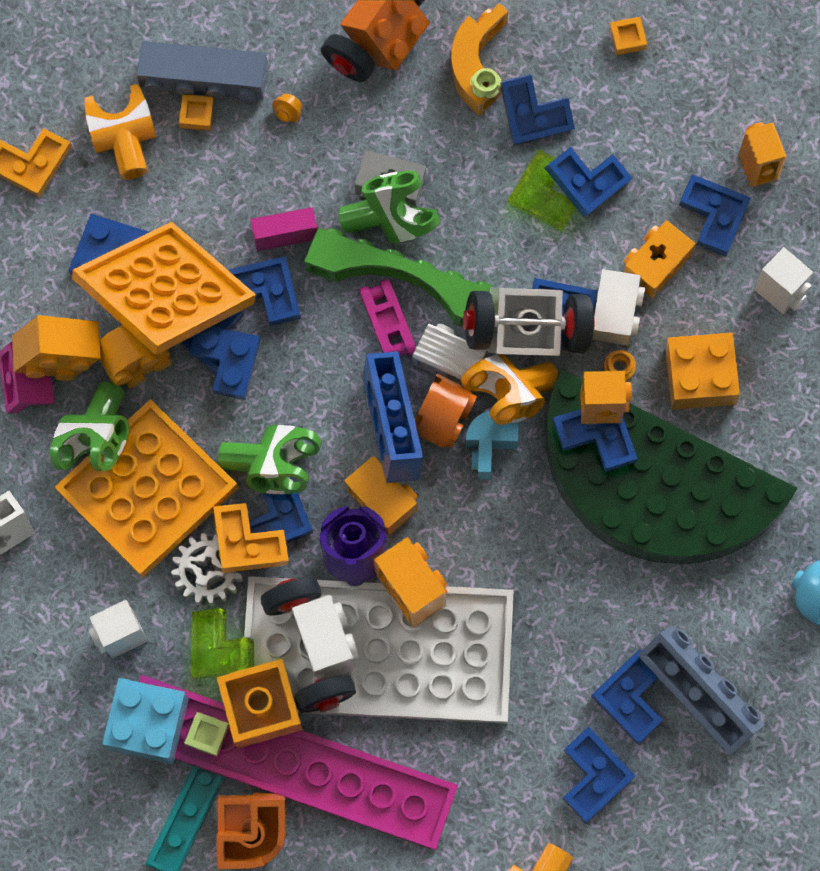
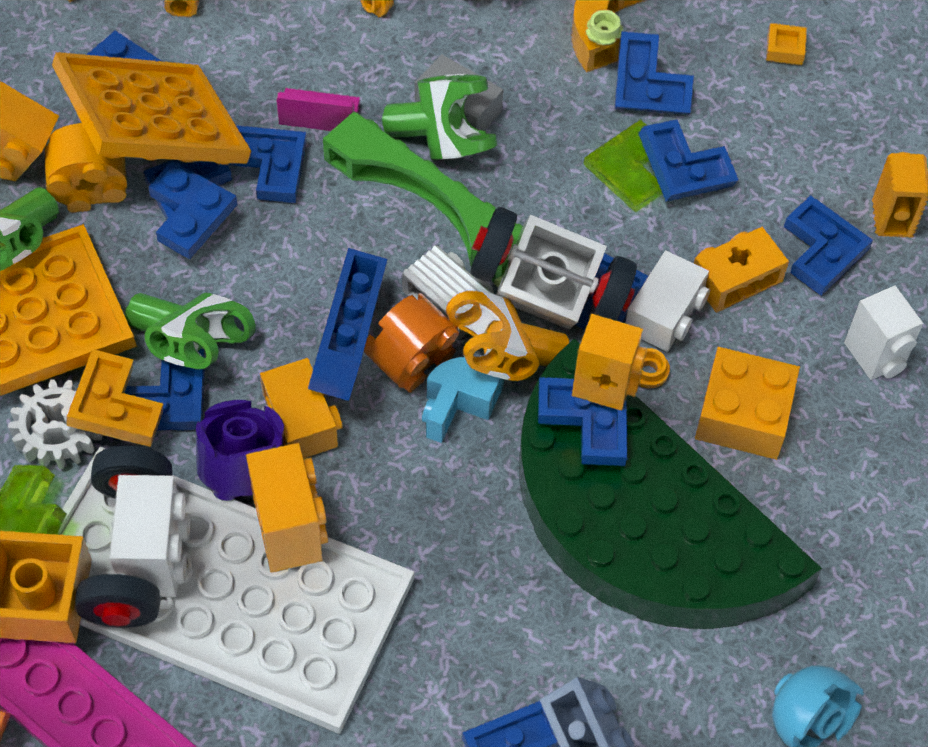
camera: 15 degrees right, 15 degrees down
(387, 318) = (393, 230): dark pink plate -> none

